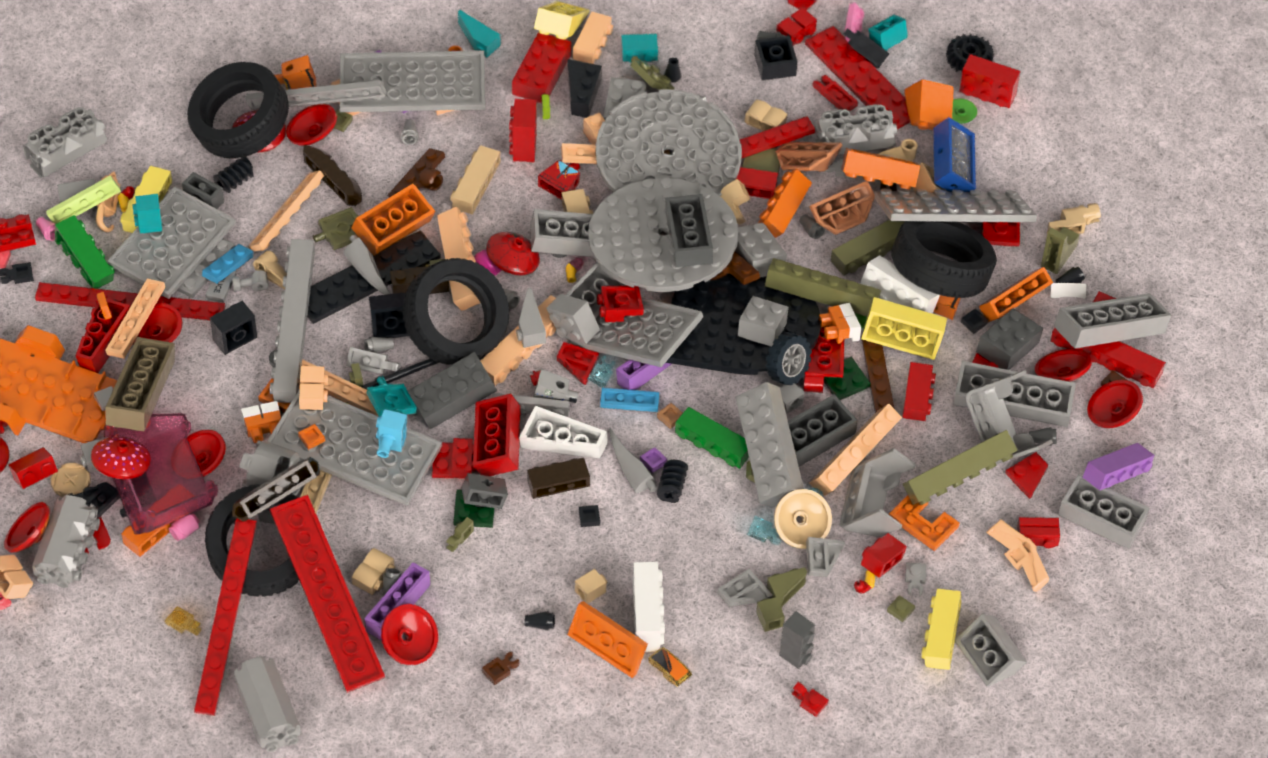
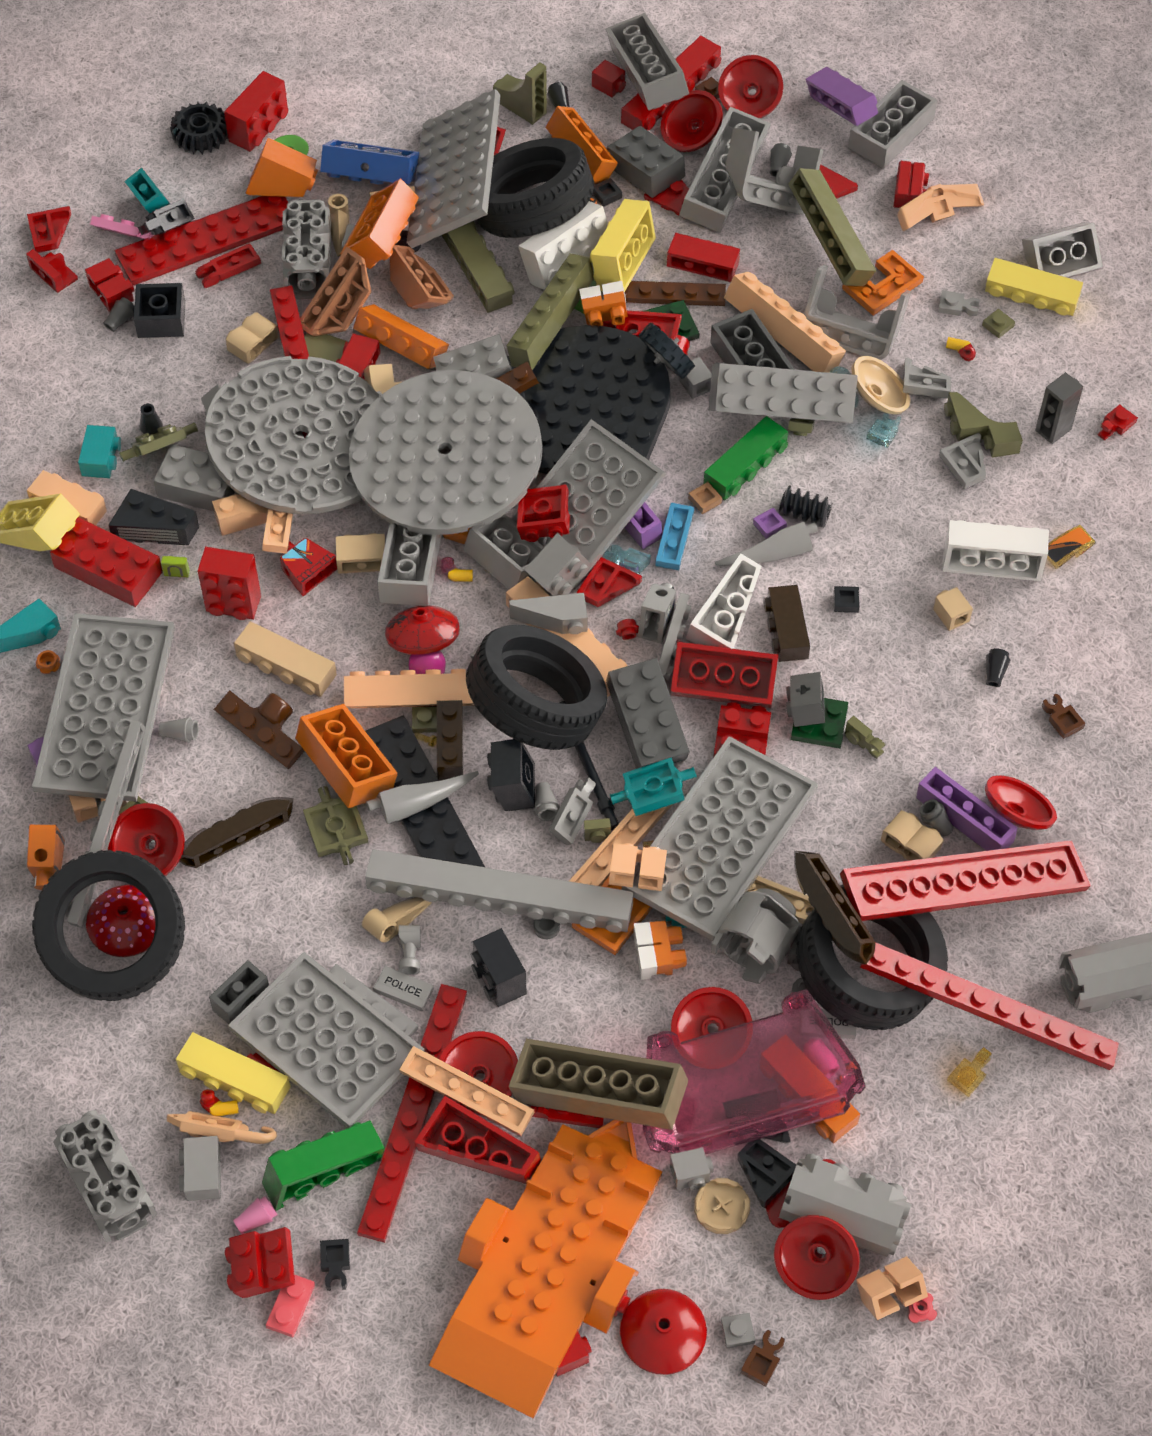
camera: 80 degrees left, 5 degrees up
(33, 468) = (705, 1249): red brick -> none
(84, 200) = (225, 1142): yellowish green plate -> none
(103, 305) = (448, 1125): orange tile -> none
(103, 396) = (597, 1142): light grey tile -> none
(120, 457) = (715, 1133): red dish -> none
(147, 213) = (292, 1051): teal brick -> none
(227, 263) = (374, 973): dark azure plate -> none
(234, 174) = (211, 951): black piece -> none
(284, 213) = (291, 892): light nougat plate -> none
(311, 436) = (711, 879): orange tile -> none
(391, 432) = (727, 778): medium azure brick -> none
(607, 639) = (1038, 595): orange plate -> none
(689, 230) = (468, 408): dark grey brick -> none
(762, 321) = (603, 368): light grey brick -> none
(811, 226) = (436, 318): dark grey cone -> none
(883, 555) = (934, 321): red brick -> none
(1068, 290) = (576, 99): white sticker -> none
(1077, 218) = (474, 75): tan plate -> none

